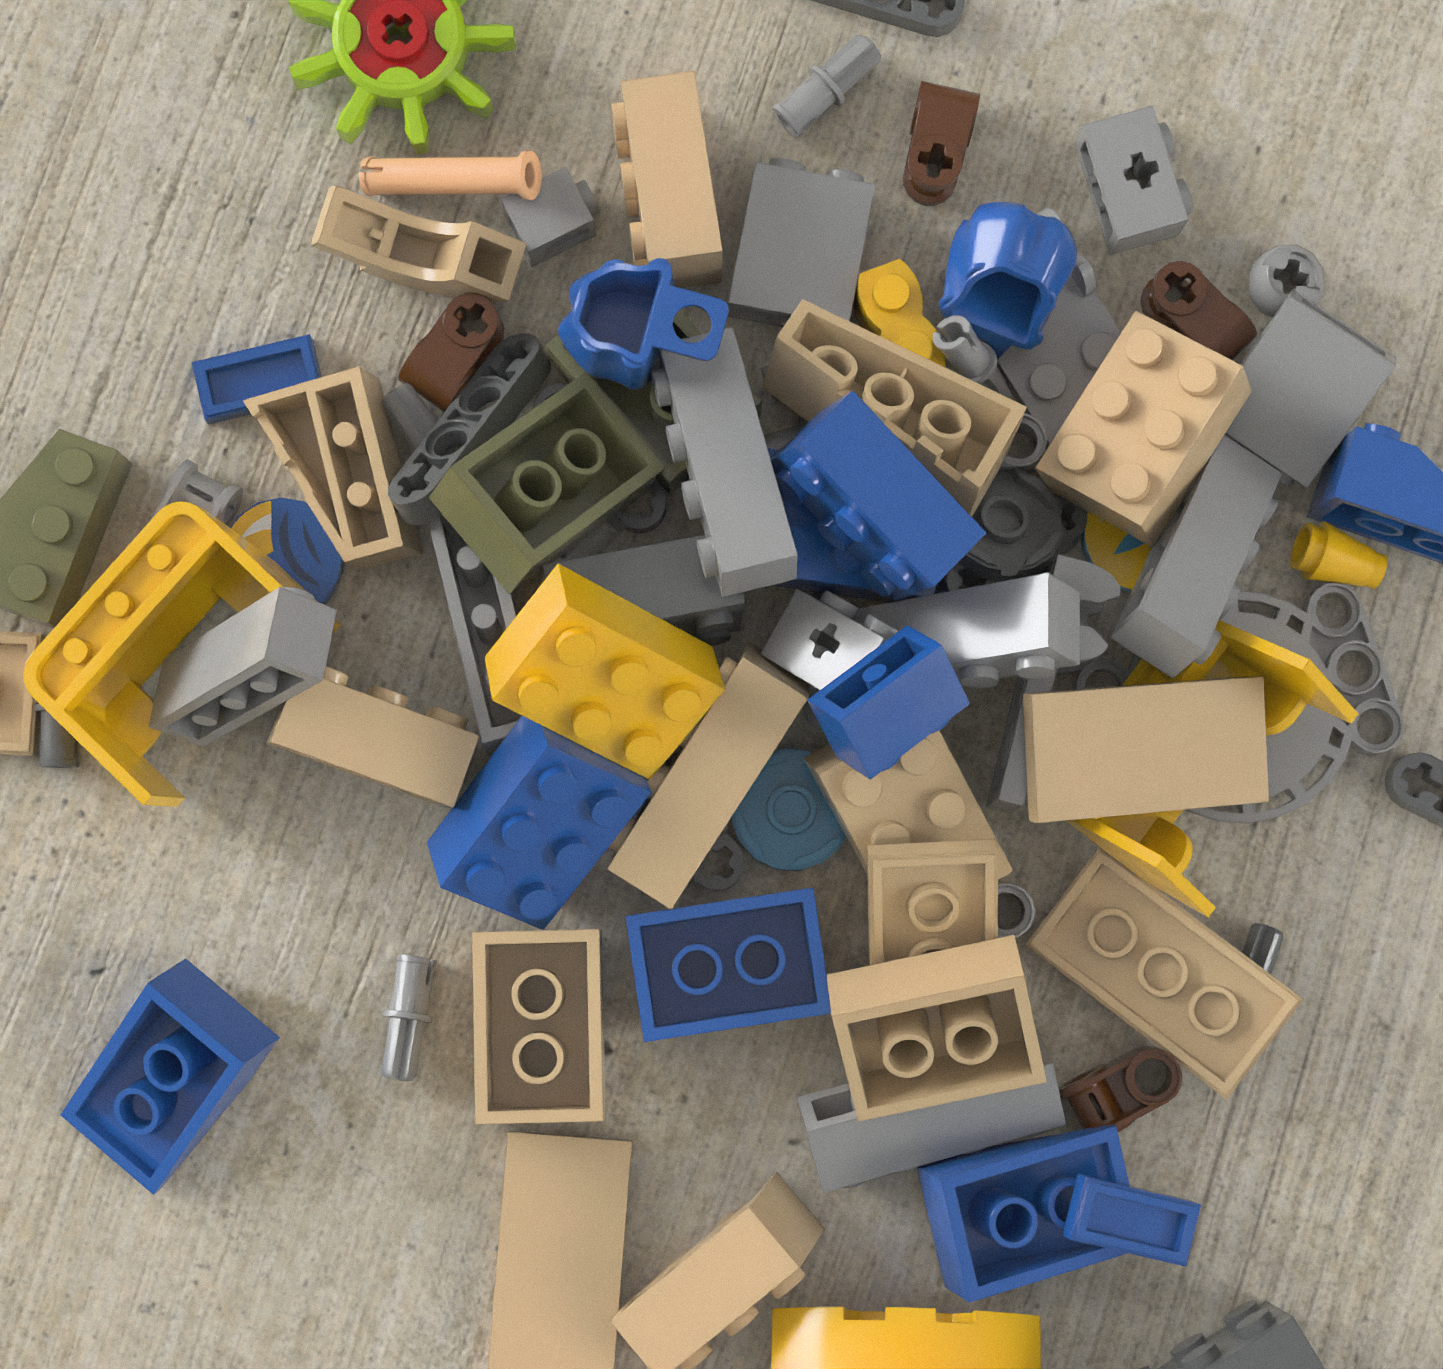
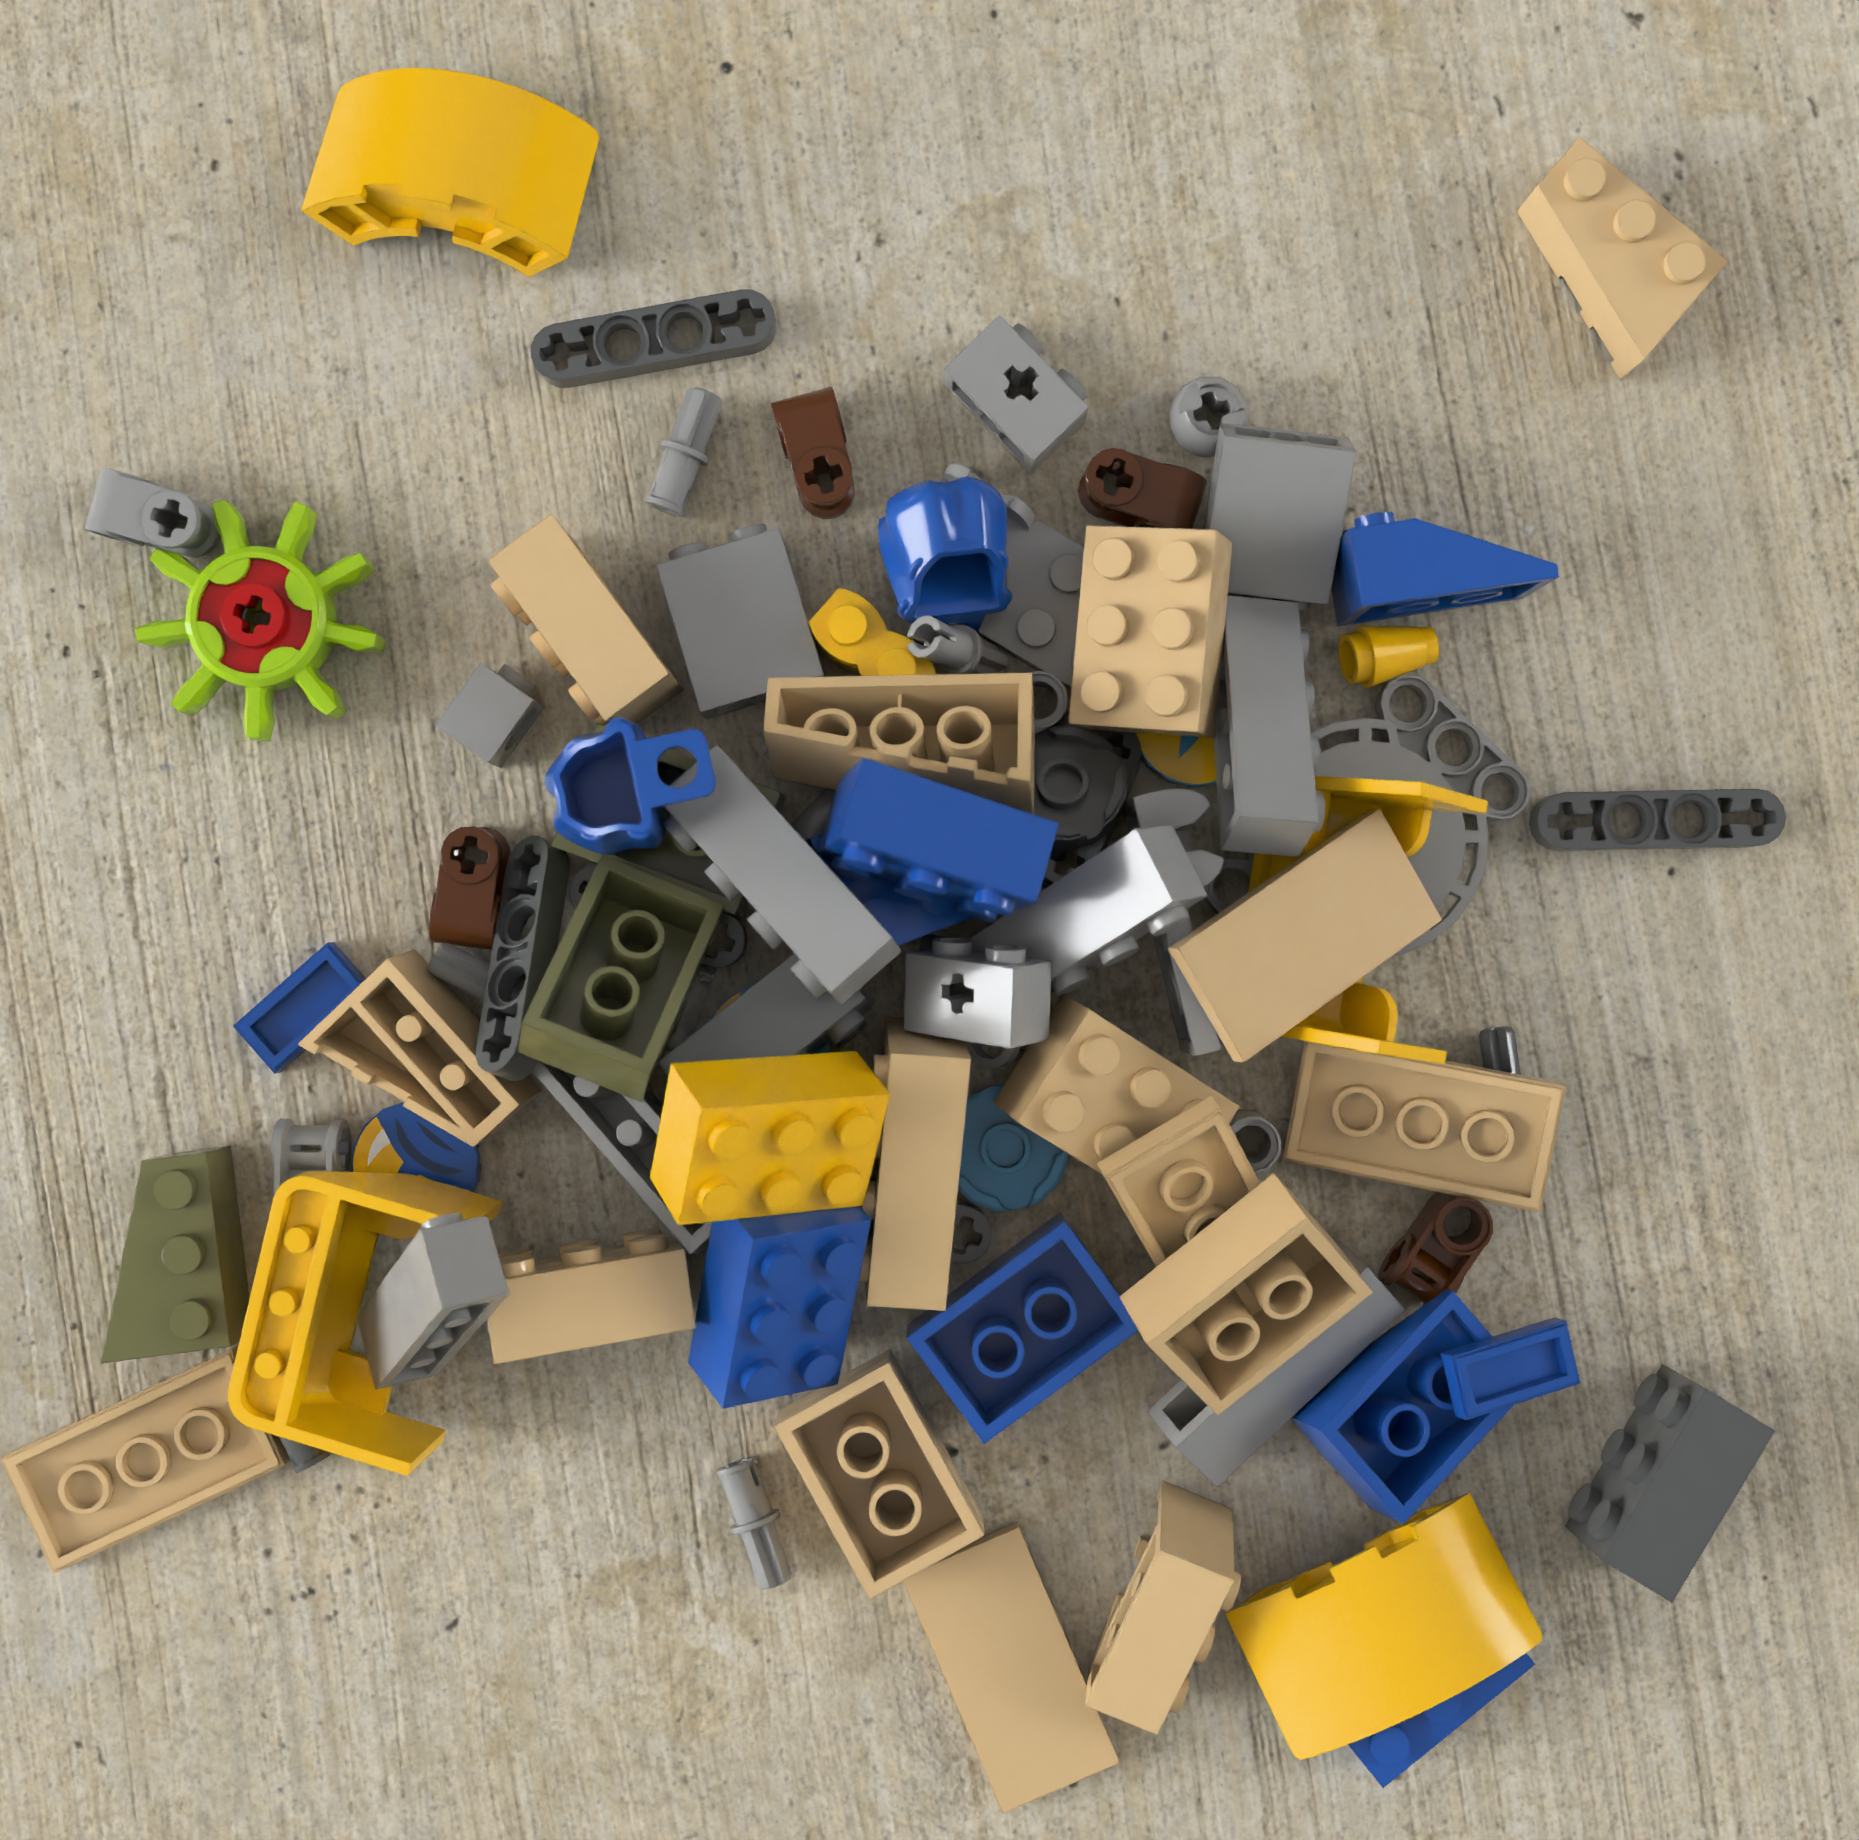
camera: 20 degrees left, 5 degrees up
(168, 1074) = (566, 1687): blue slope -> none
(417, 250) = (384, 811): tan arch -> none
(453, 175) = (381, 725): light nougat pin -> none
(889, 702) = (1049, 1026): blue brick -> none

